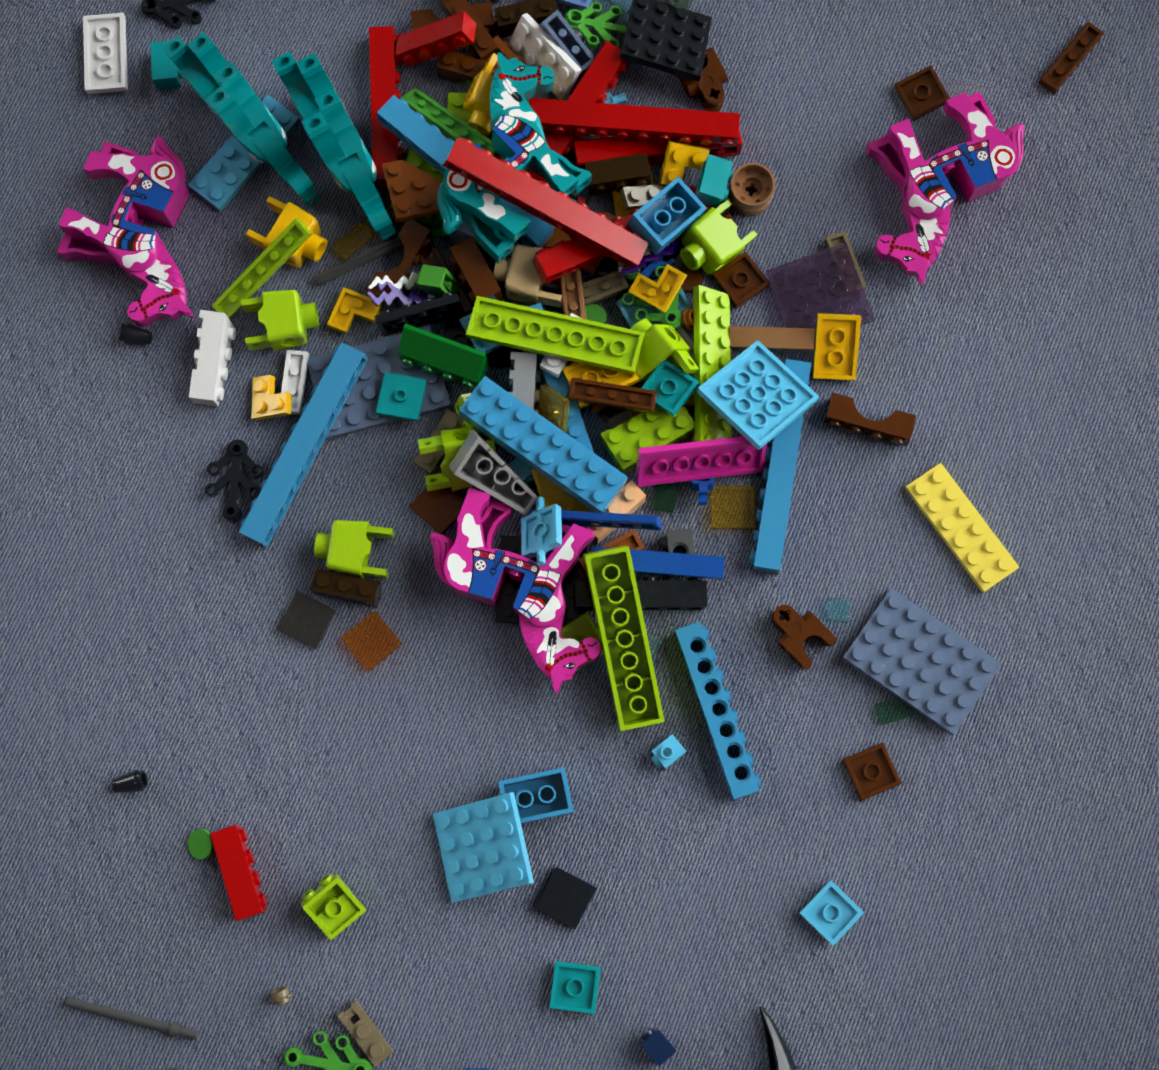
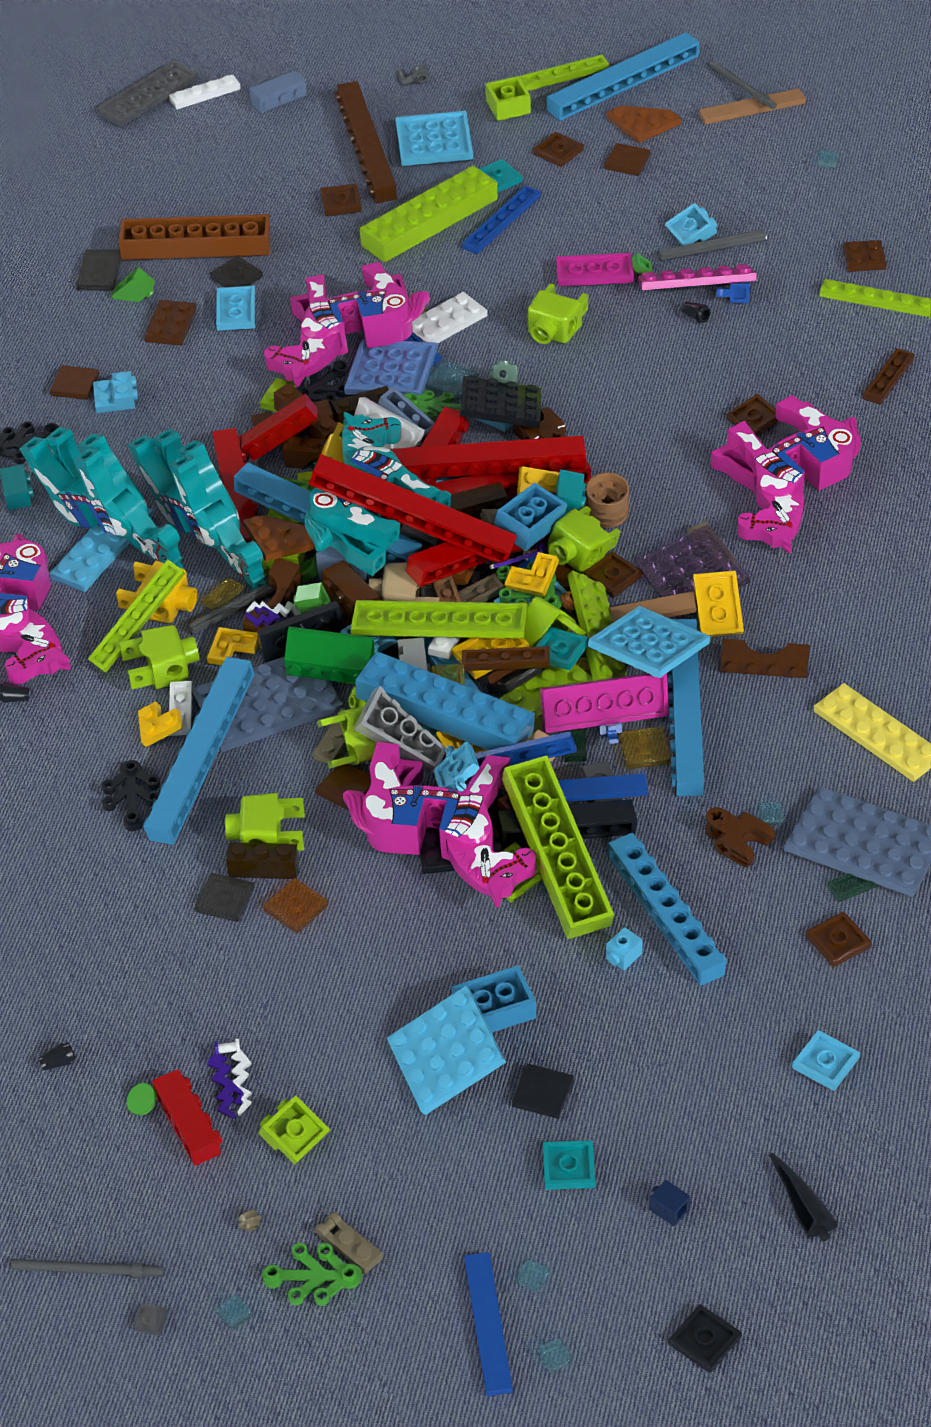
camera: 10 degrees left, 30 degrees down
(211, 358) = (94, 696): white wedge -> none
(284, 841) = (216, 1062): none -> piece
(401, 397) = (293, 700): teal plate -> none

